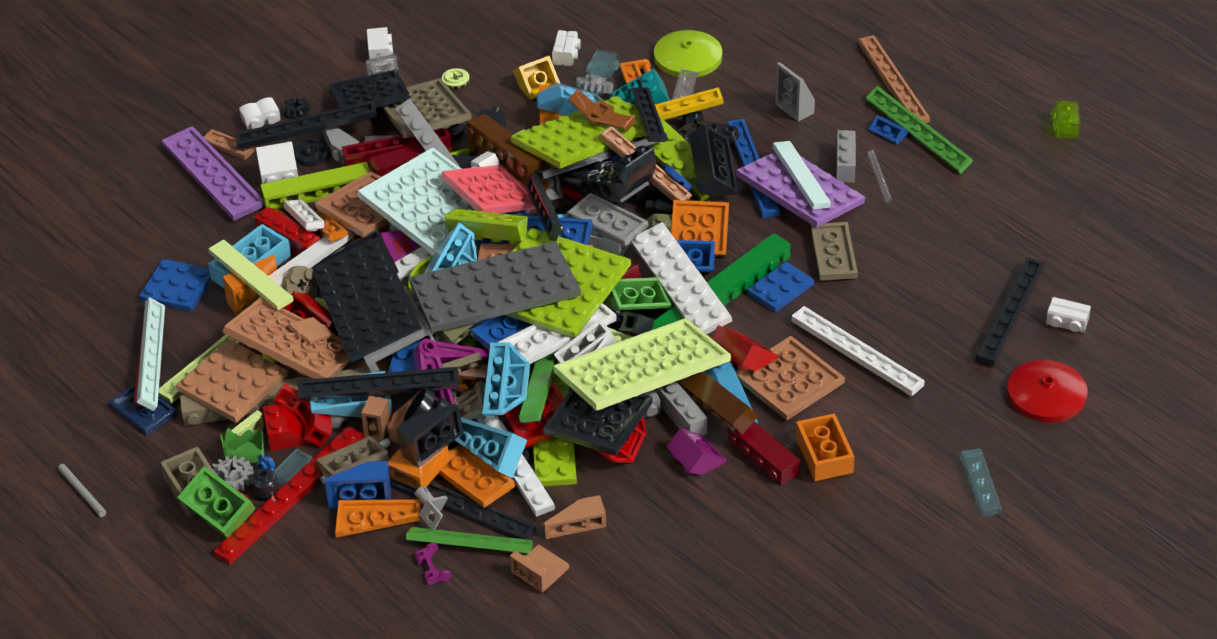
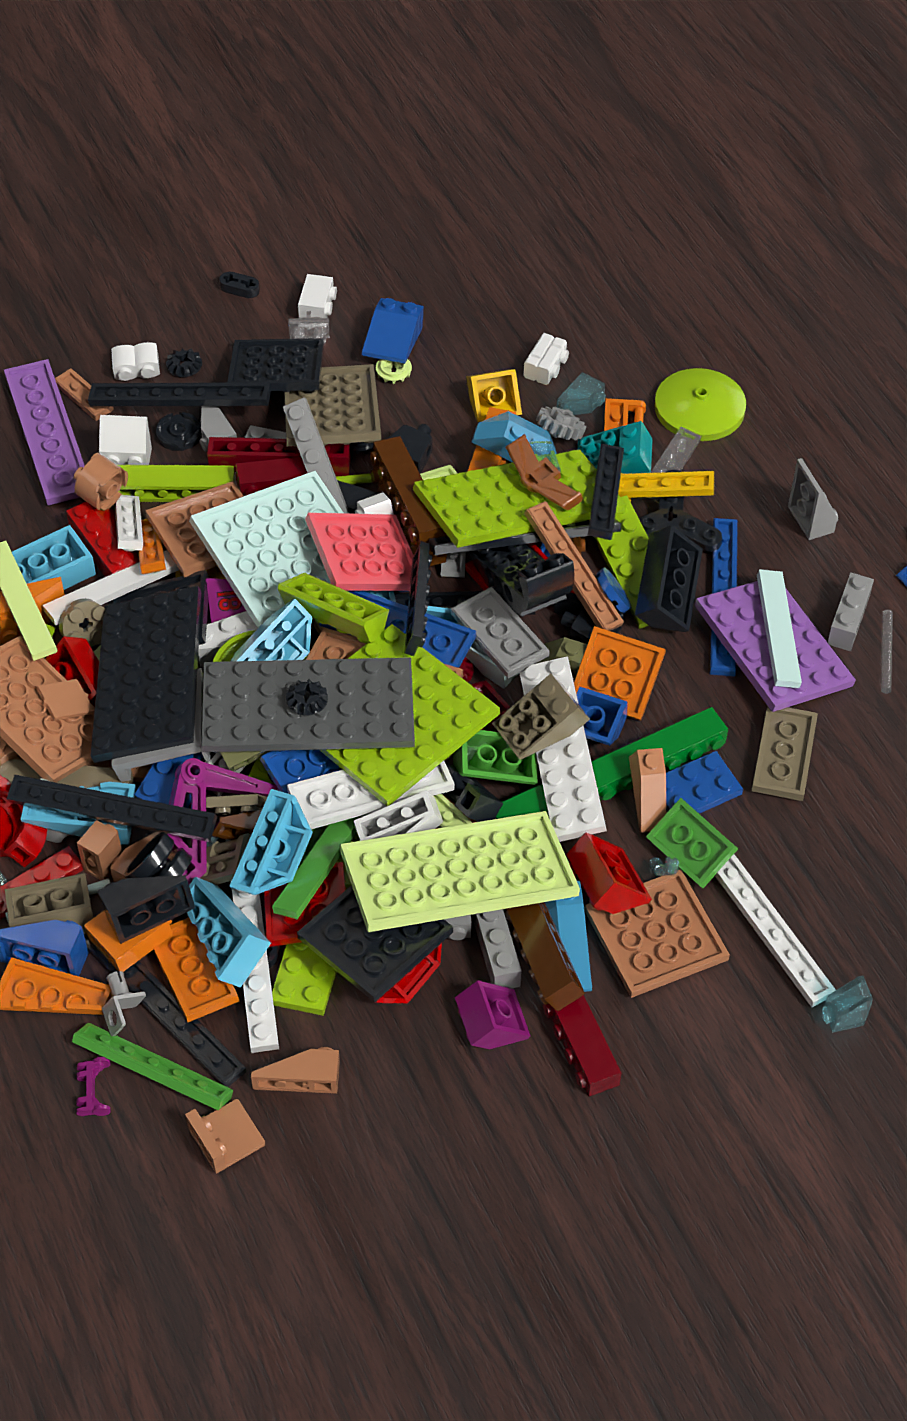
camera: 15 degrees right, 10 degrees up
(274, 190) = (100, 482): none -> nougat brick
(315, 49) = (239, 284): none -> black beam
(446, 52) = (393, 330): none -> blue slope
(487, 282) = (316, 702): none -> black gear
(661, 260) = (541, 718): none -> dark tan slope
(750, 289) = (649, 787): none -> nougat slope
(778, 338) = (667, 869): none -> clear light blue arm
(792, 316) = (693, 842): none -> bright green plate
(824, 447) = (663, 1060): orange brick -> none
(937, 385) = (848, 1005): none -> clear light blue slope
(981, 482) = (860, 1173): clear light blue tile -> none

